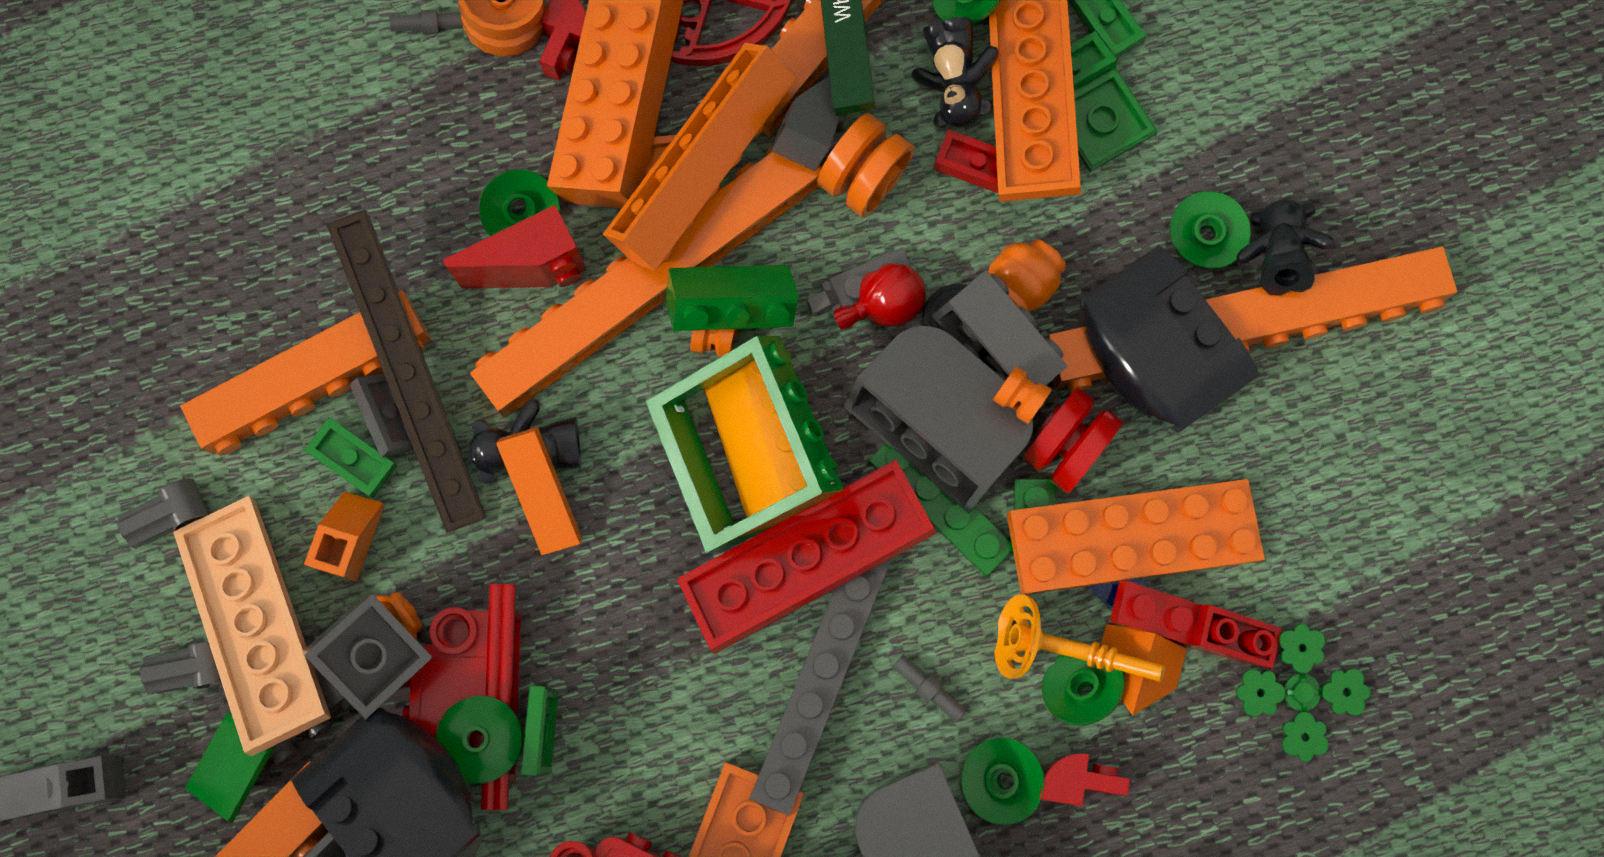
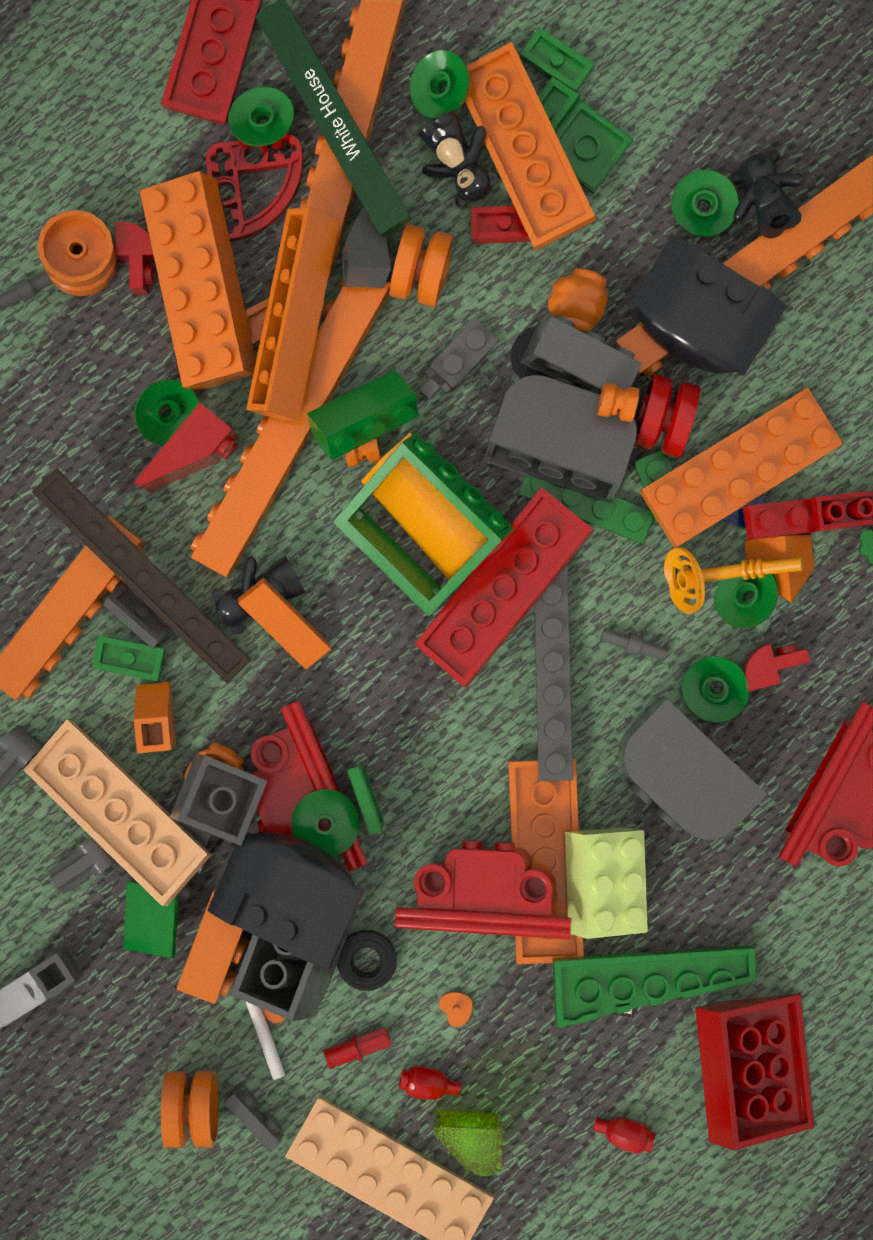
camera: 20 degrees left, 10 degrees up
(886, 297) = (479, 363): red hair -> none

